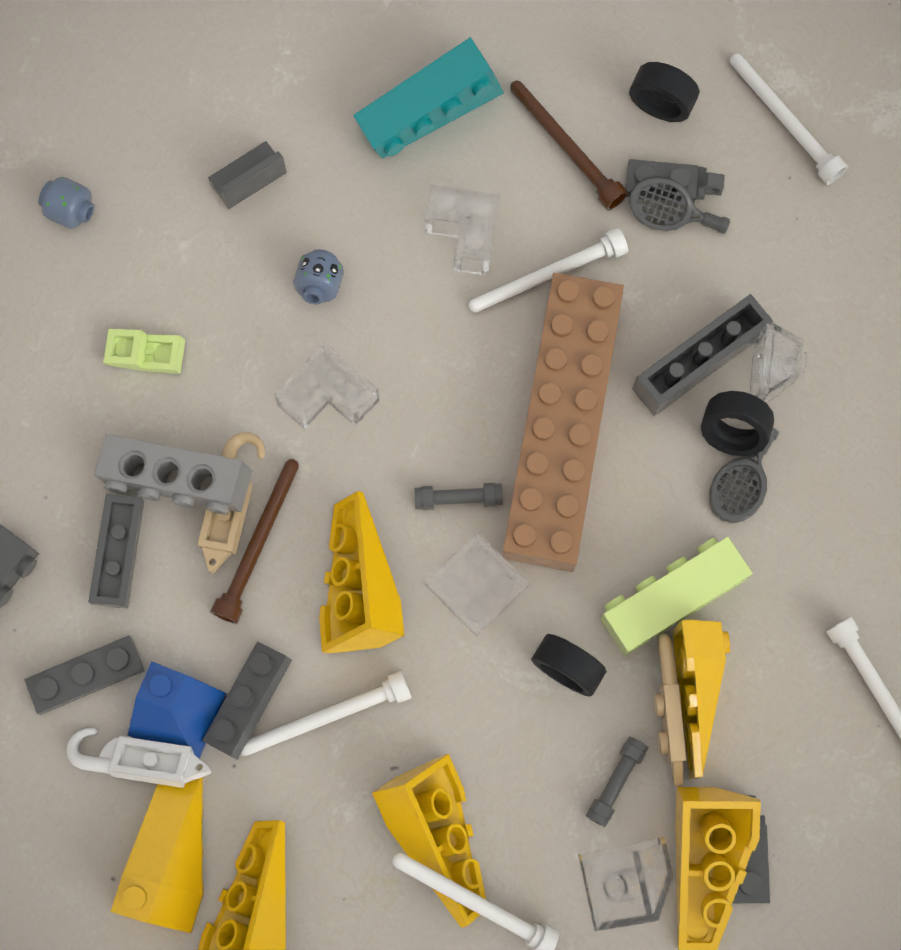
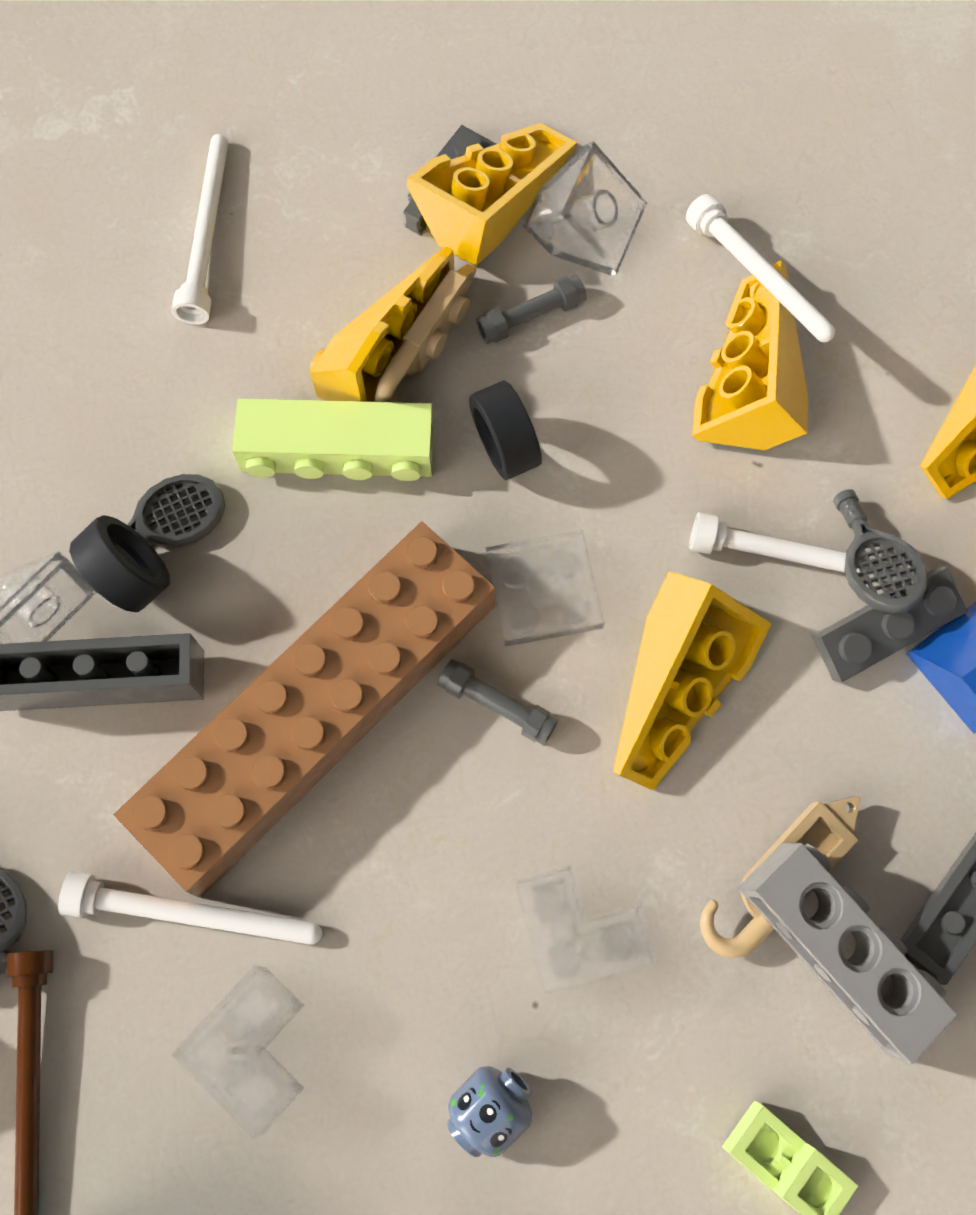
camera: 145 degrees left, 5 degrees down
(229, 604) = (856, 743): reddish brown piece -> none
(305, 759) = (848, 505): none -> dark grey piece

